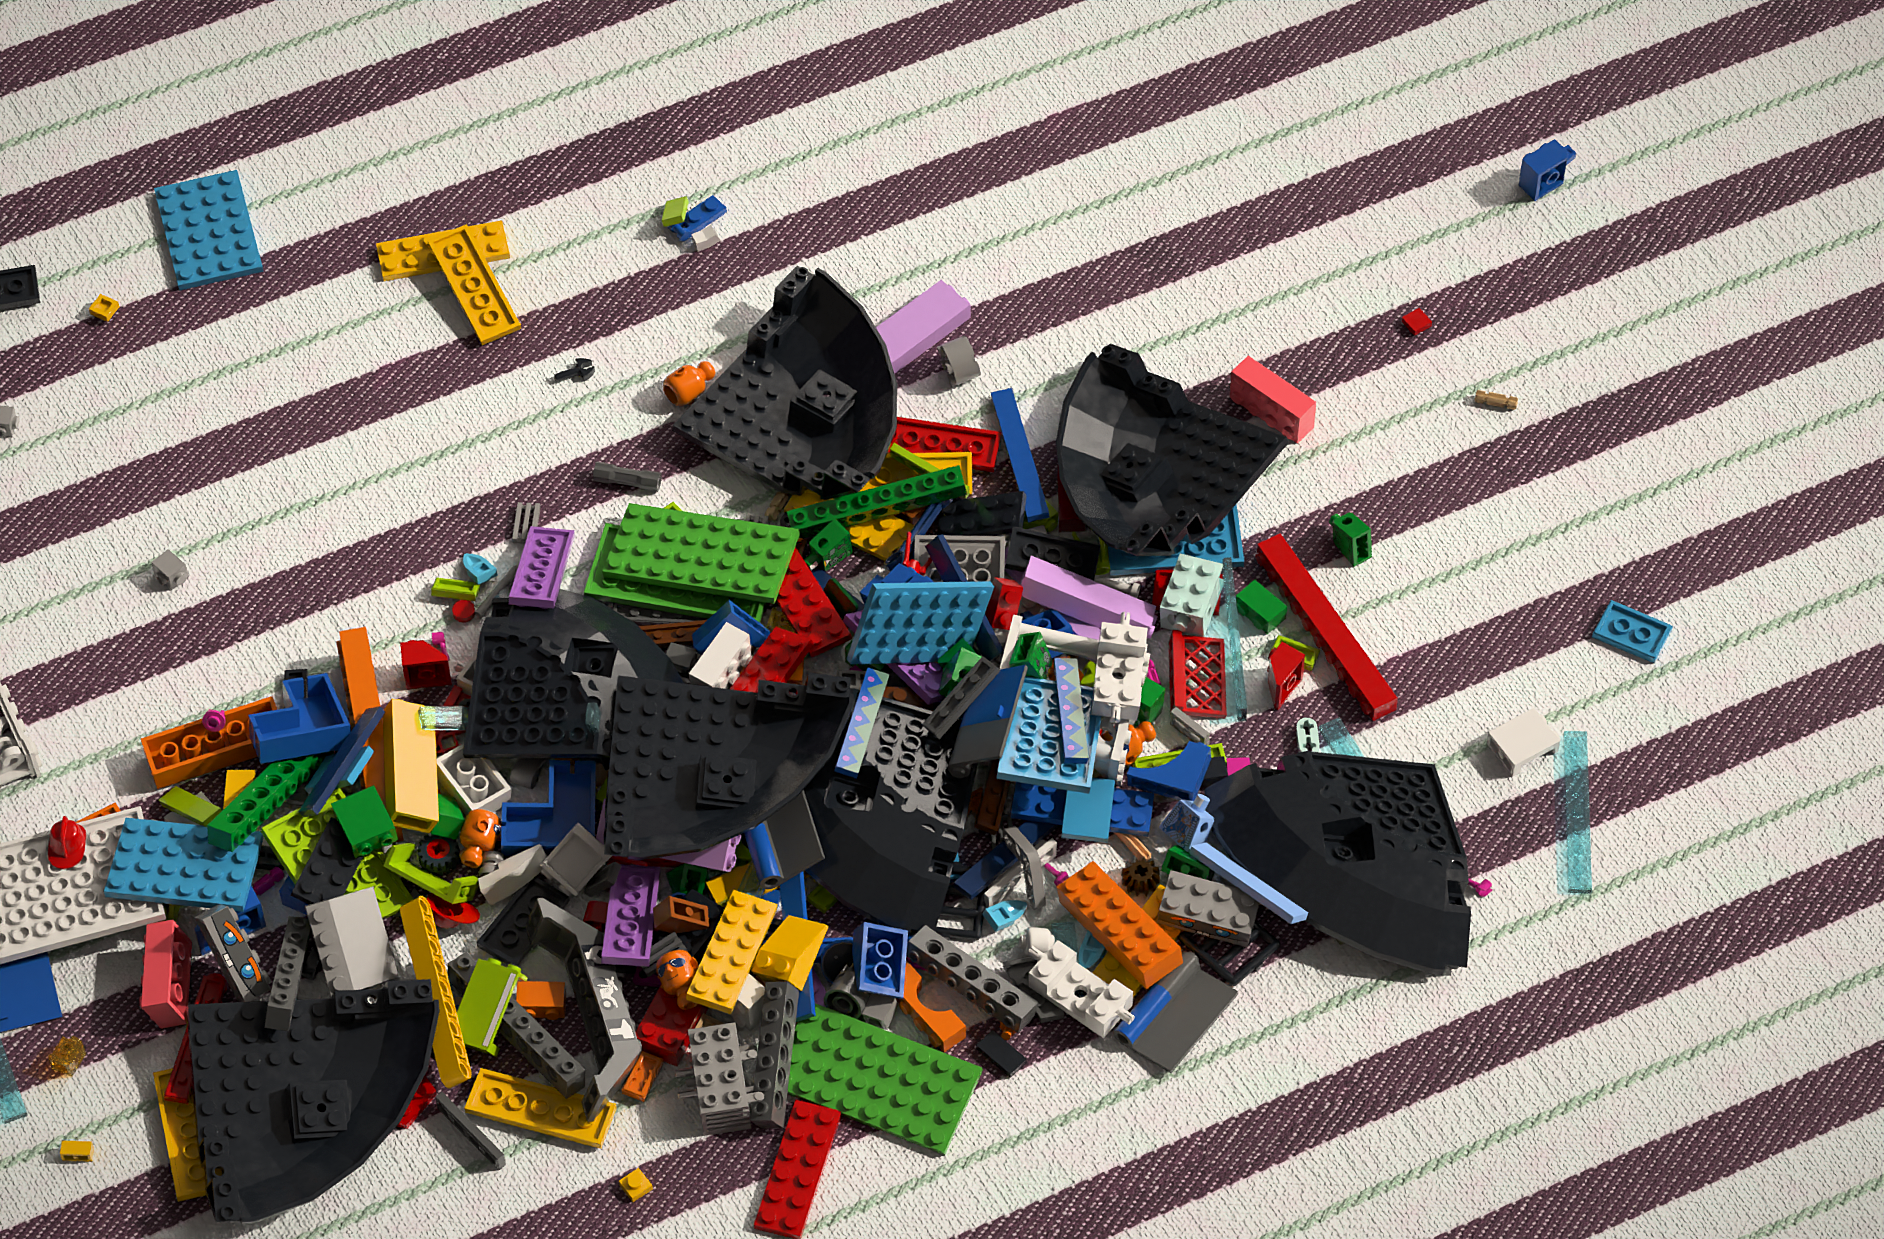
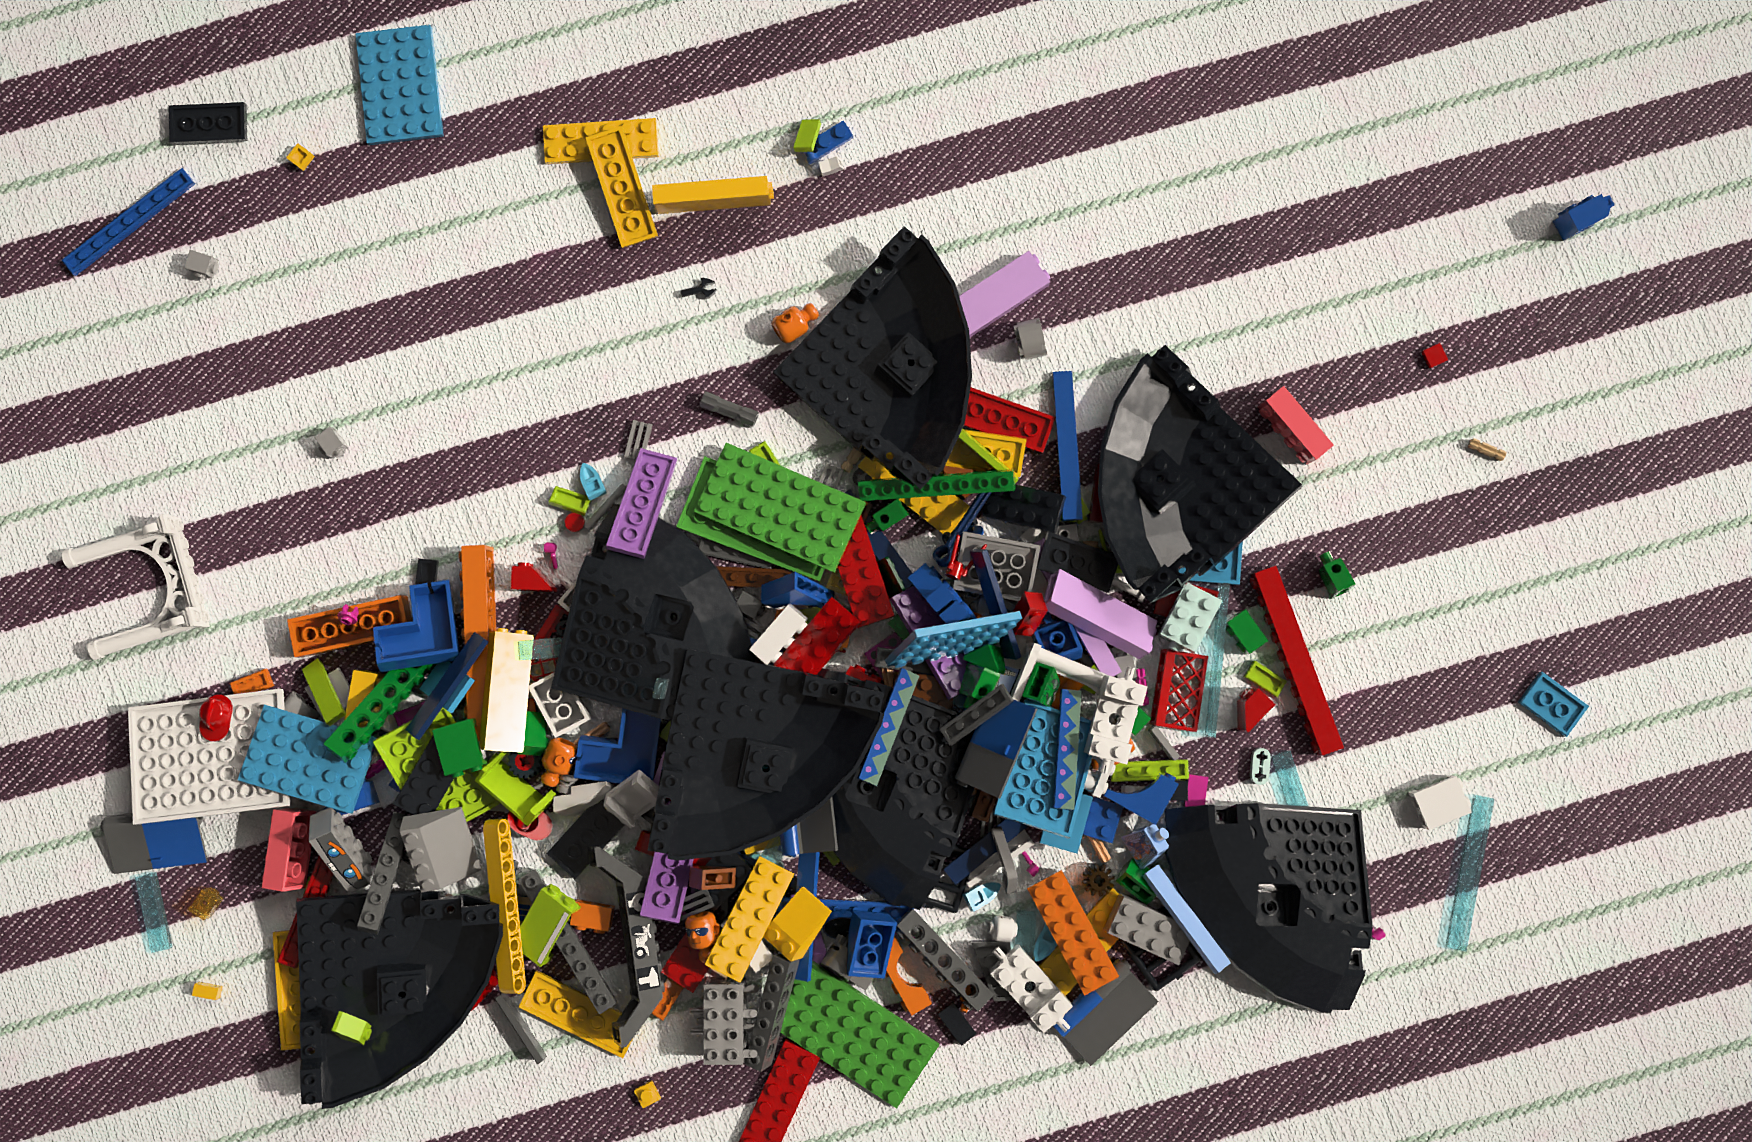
camera: 10 degrees right, 30 degrees up
(266, 1144) = (351, 1028): none -> lime slope
(578, 276) = (712, 194): none -> yellow brick

